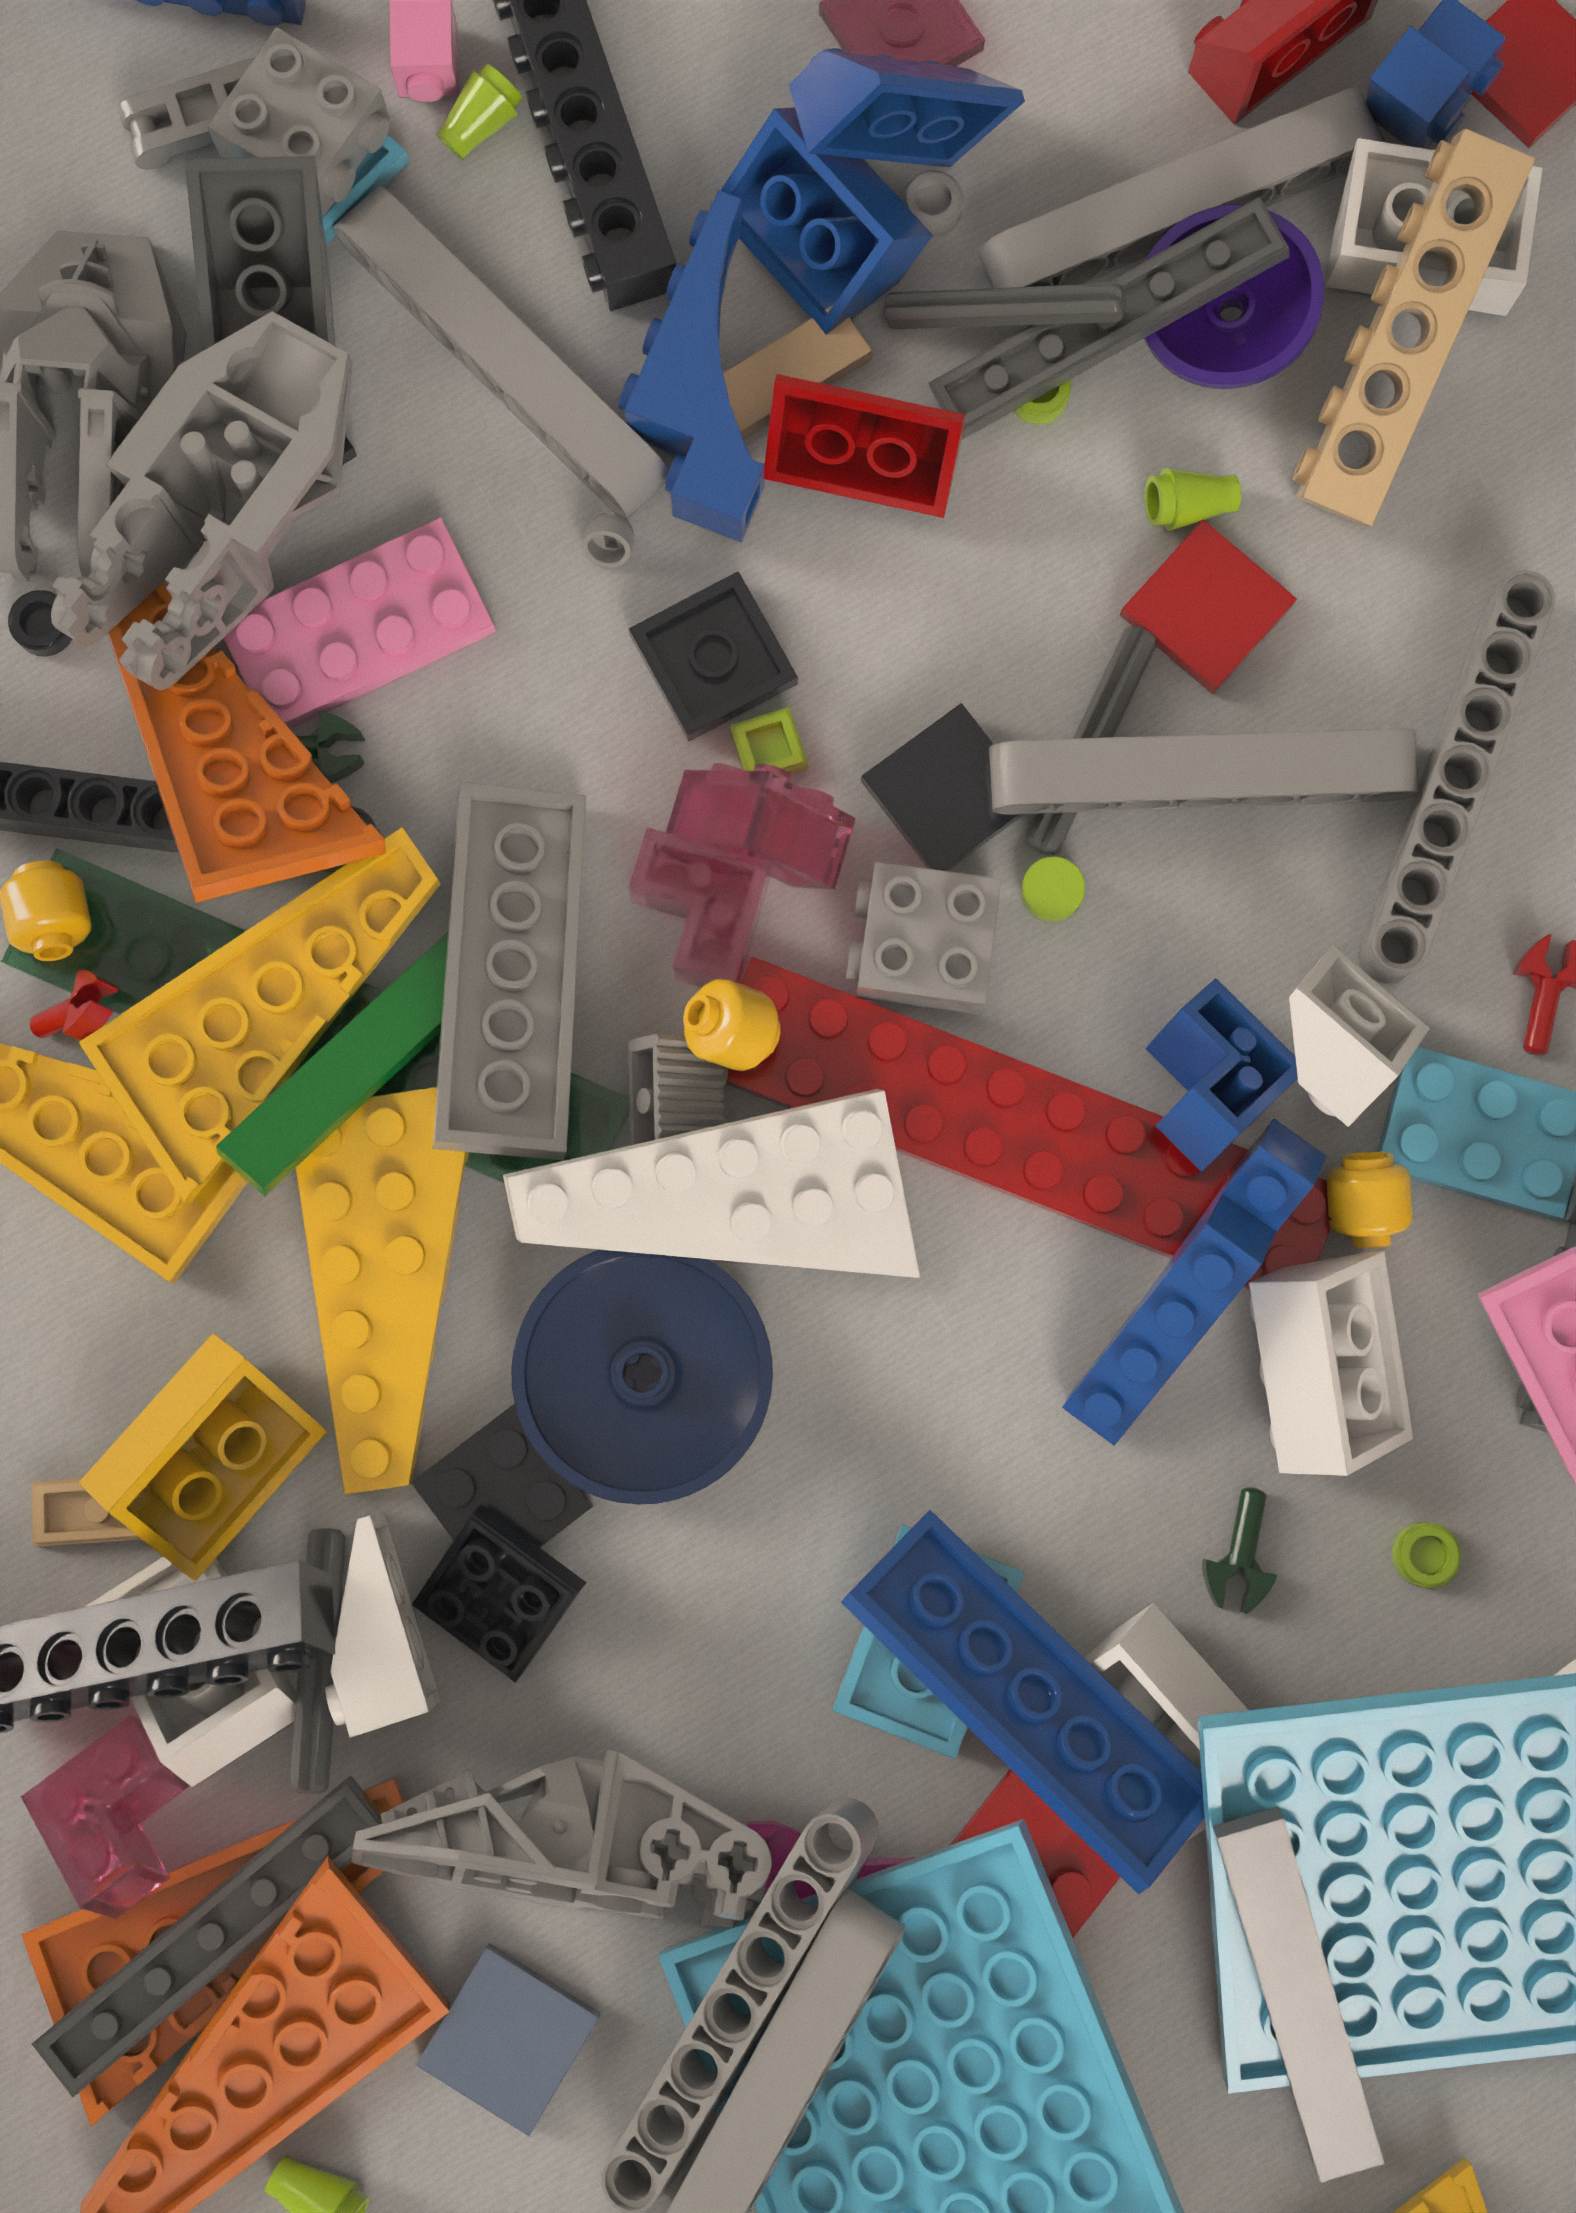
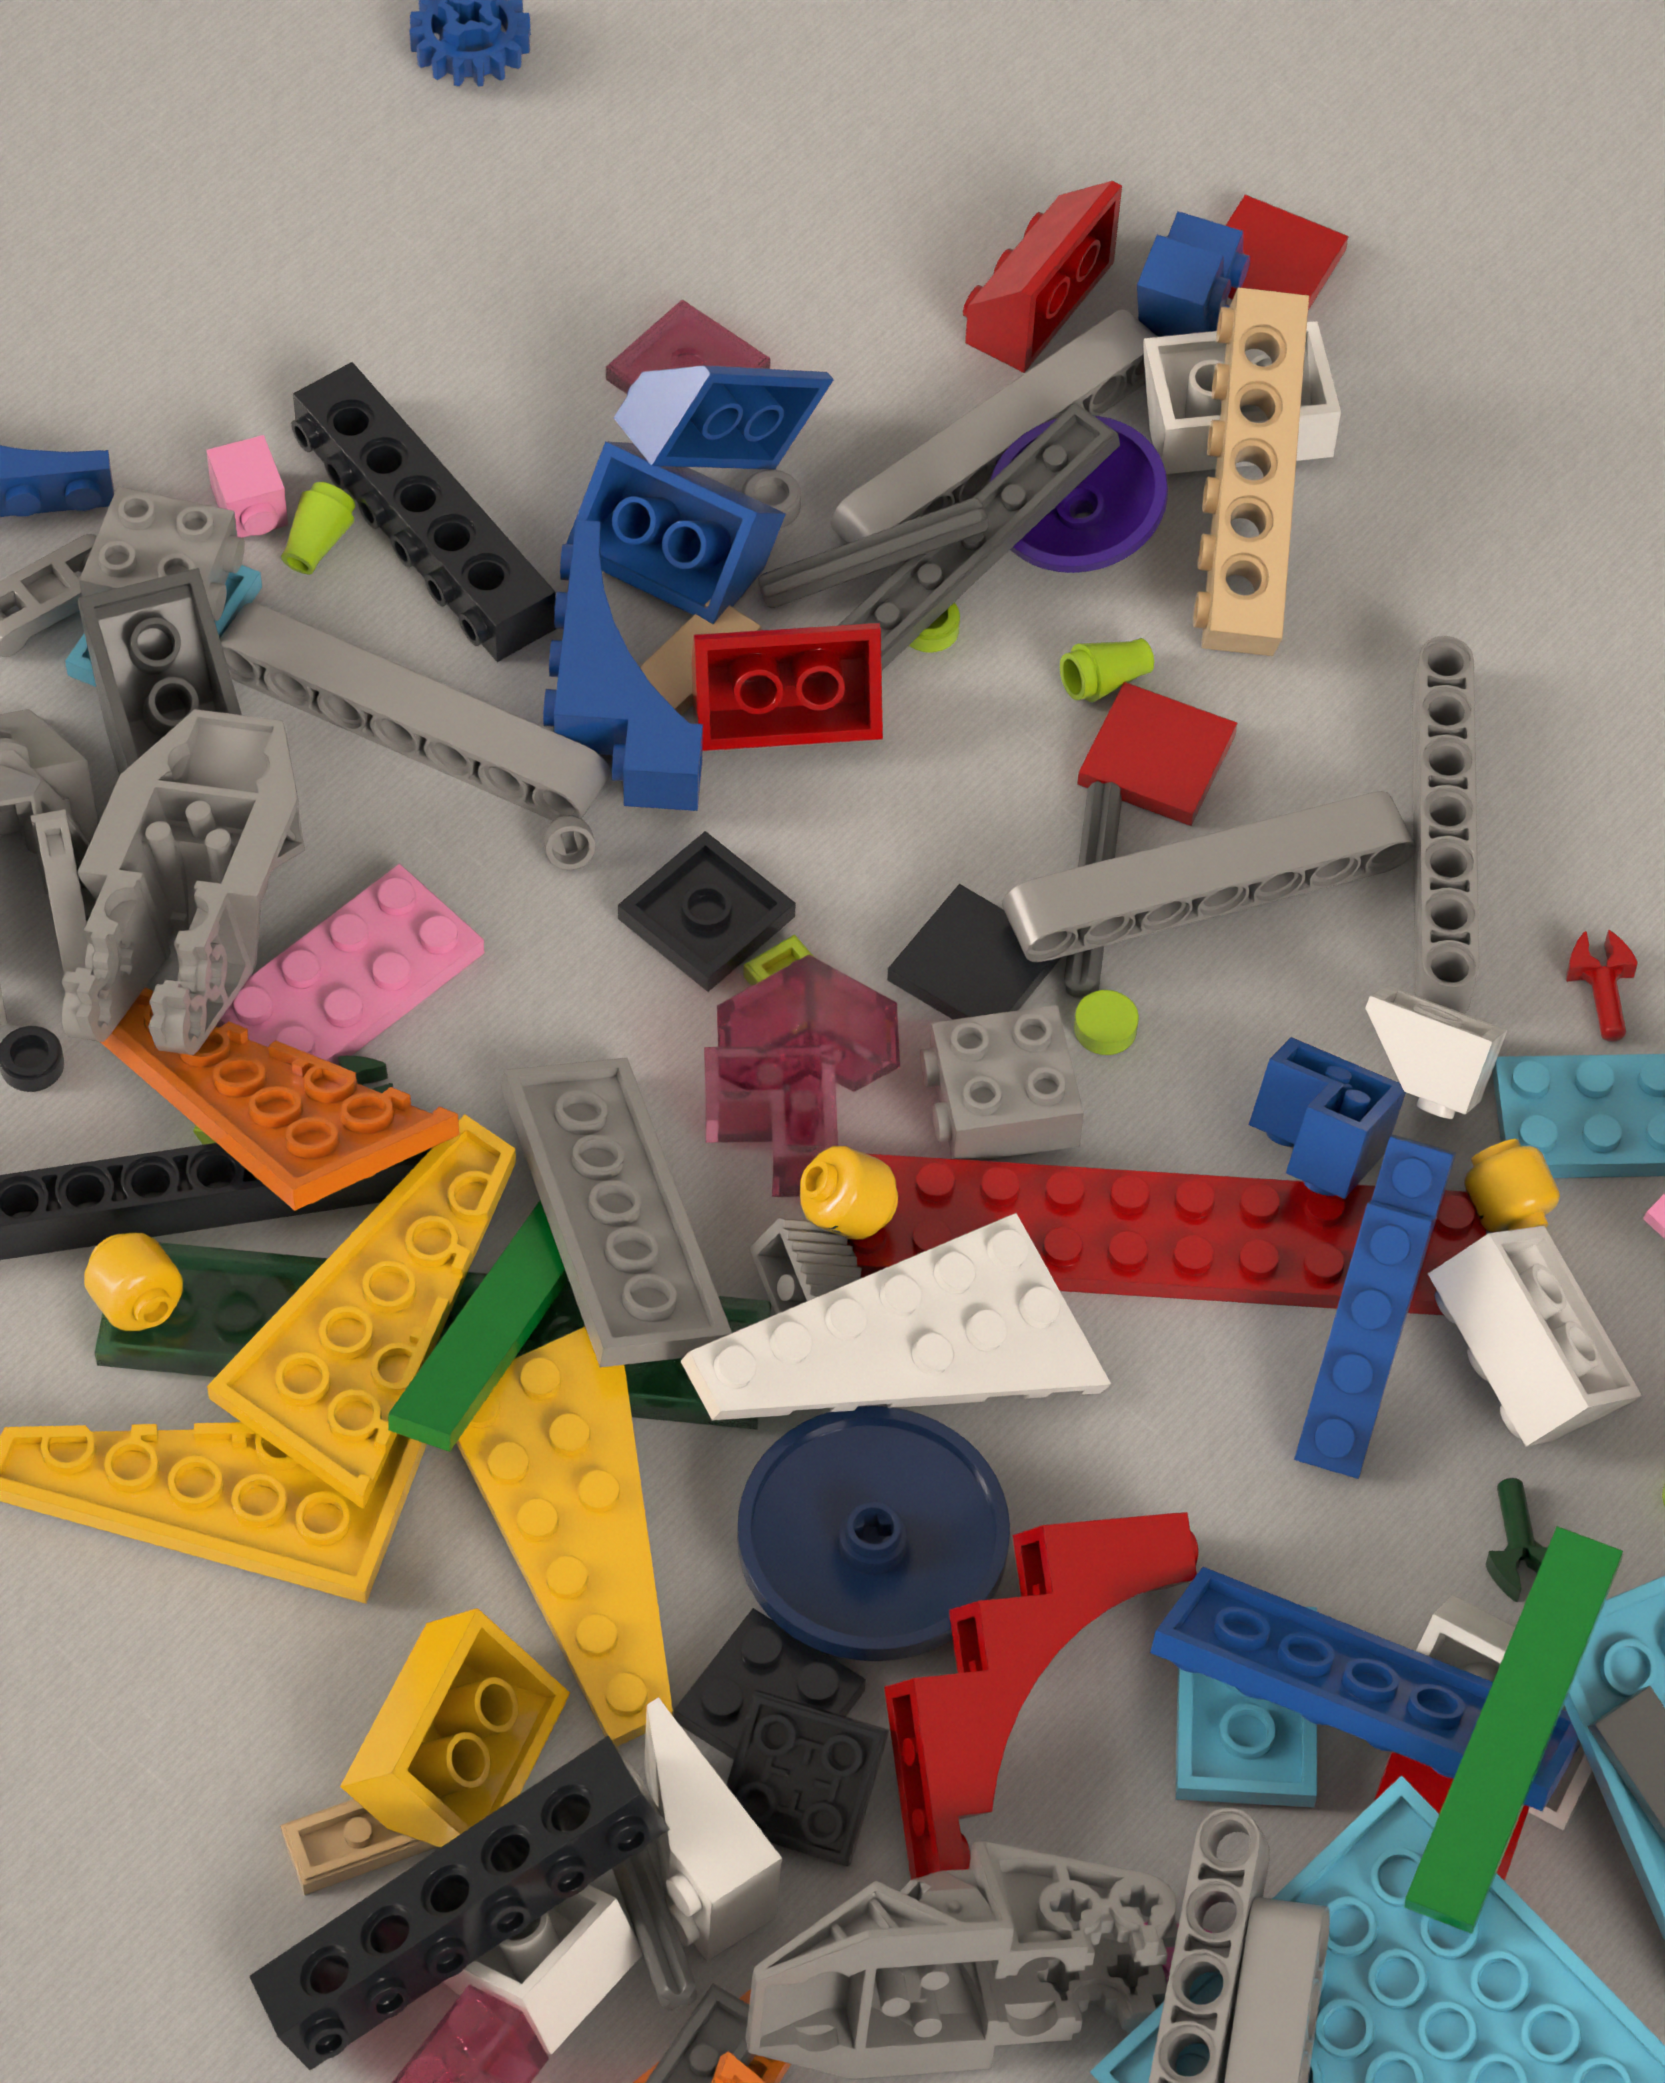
camera: 20 degrees left, 25 degrees down
(80, 1013) = (201, 1361): red bar -> none
(652, 1595) = (956, 1726): none -> red arch
(1137, 1826) = (1513, 1730): none -> green tile

